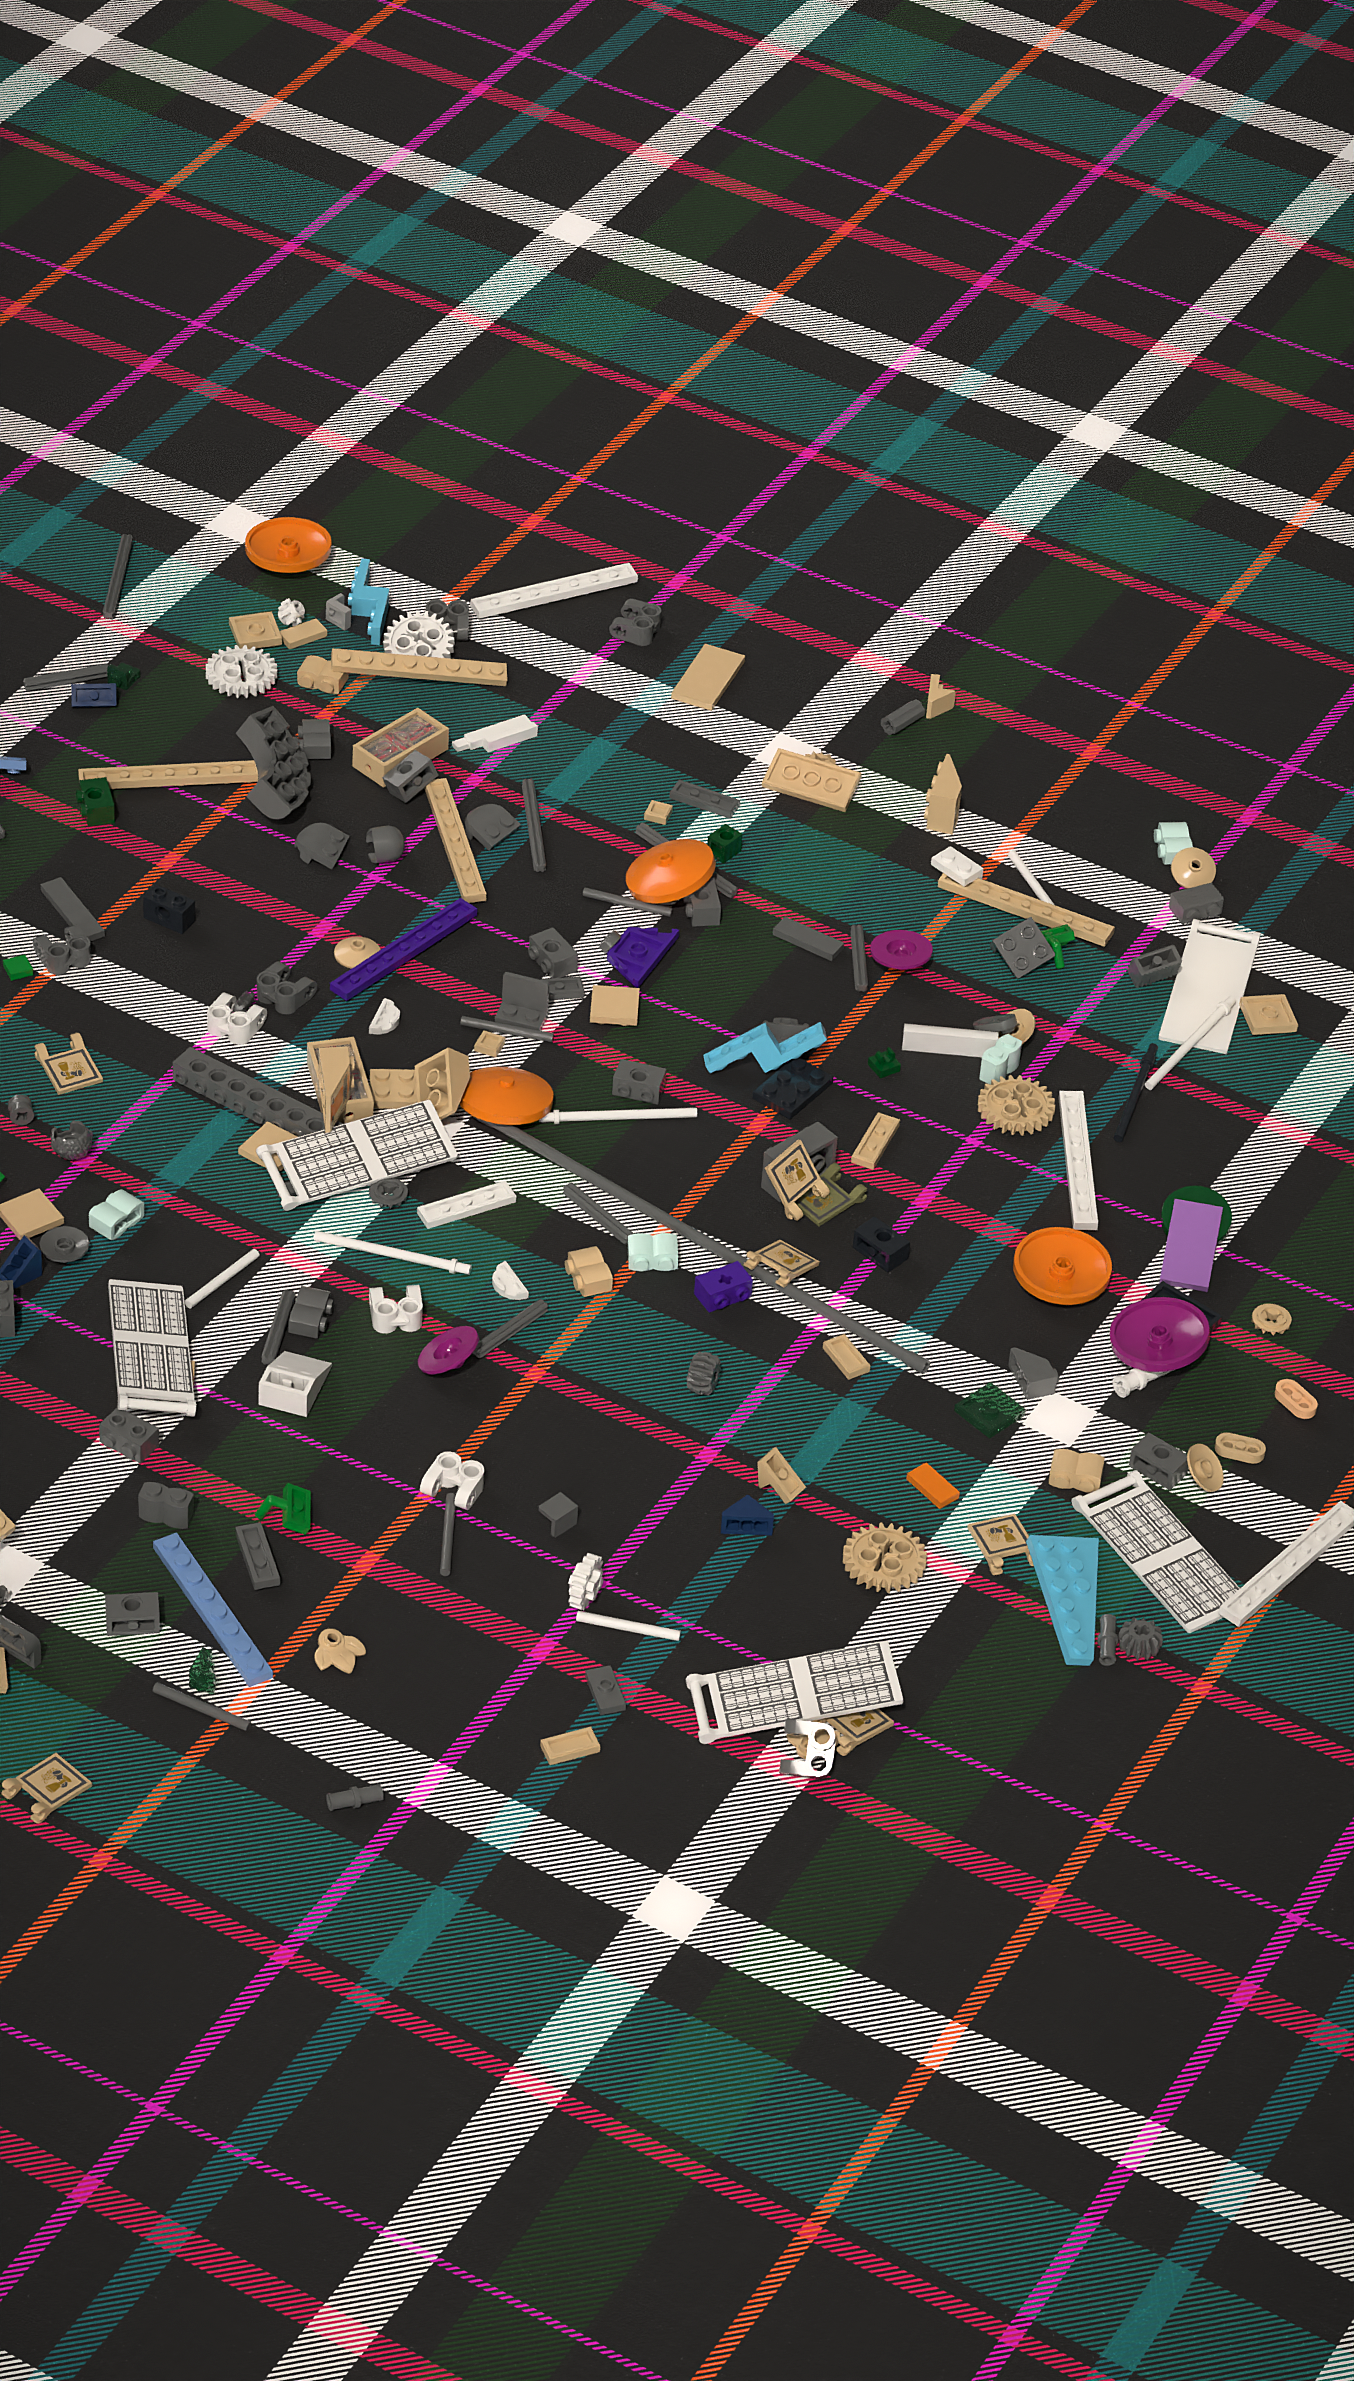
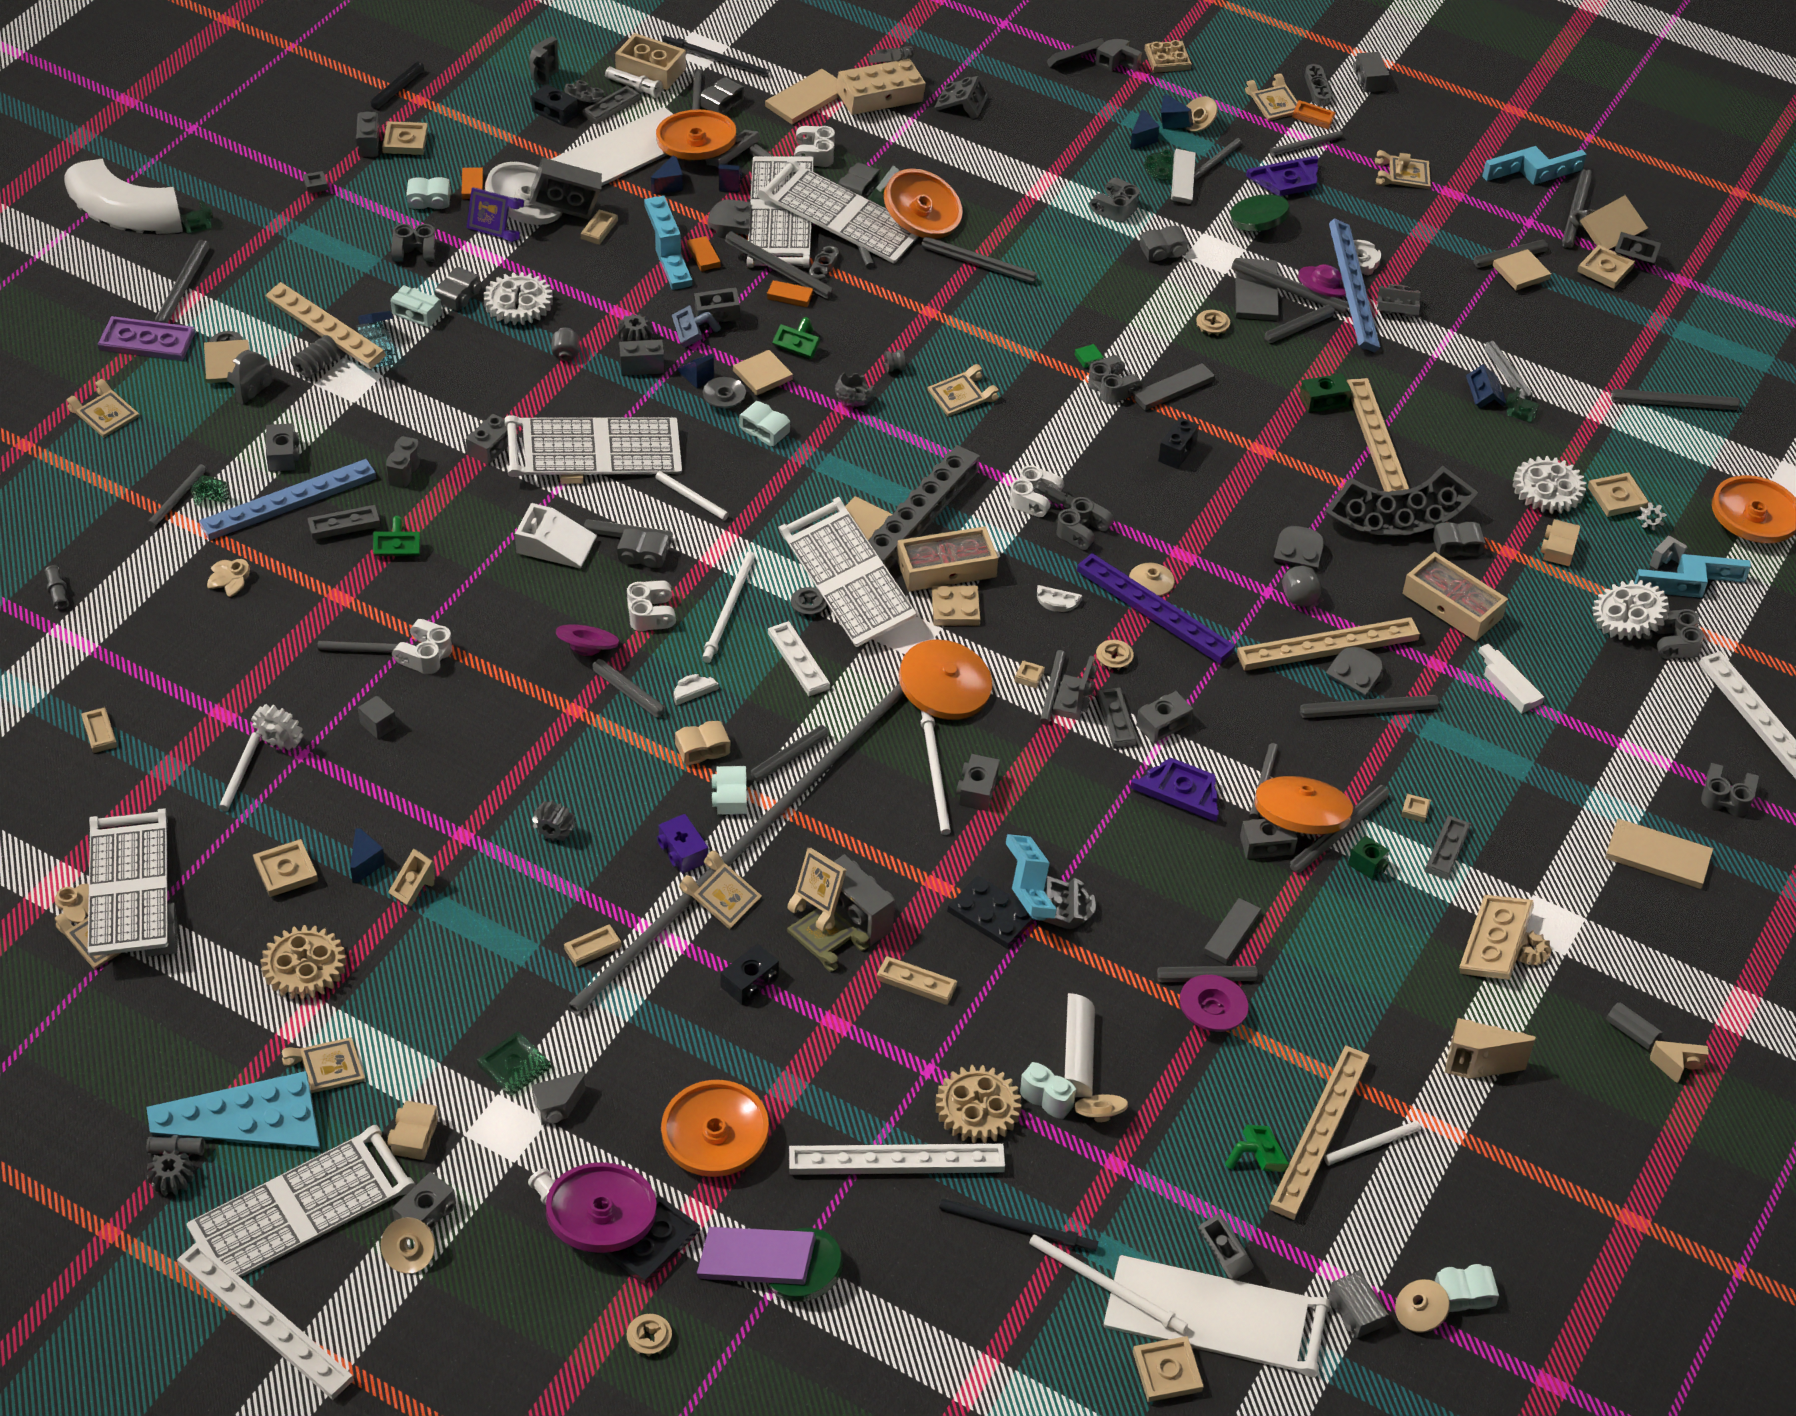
camera: 90 degrees right, 5 degrees up
(303, 633) = (1628, 531): tan tile -> none
(334, 1082) = (900, 528): tan slope -> none
(410, 776) = (1408, 602): dark grey brick -> none
(418, 667) = (1588, 610): tan plate -> none
(443, 1080) = (949, 625): tan slope -> none
(460, 977) = (1110, 647): none -> tan gear
(605, 1690) = (161, 754): dark grey plate -> none
(609, 941) = (1191, 760): dark grey tile -> none
(614, 1005) = (1095, 765): tan tile -> none
(763, 1579) = (285, 868): none -> tan plate
(814, 1750) = (48, 889): piece -> none
(884, 1063) = (1038, 991): dark green tile -> none
(933, 1485) = (406, 1009): orange tile -> none
(957, 866) = (1368, 1063): white bracket -> none
(1002, 1023) = (1103, 1086): dark grey plate -> none
(1023, 948) = (1236, 1116): dark grey bracket -> none
(1240, 1448) = (444, 1288): tan plate -> none
(1296, 1398) = (516, 1347): light nougat plate -> none

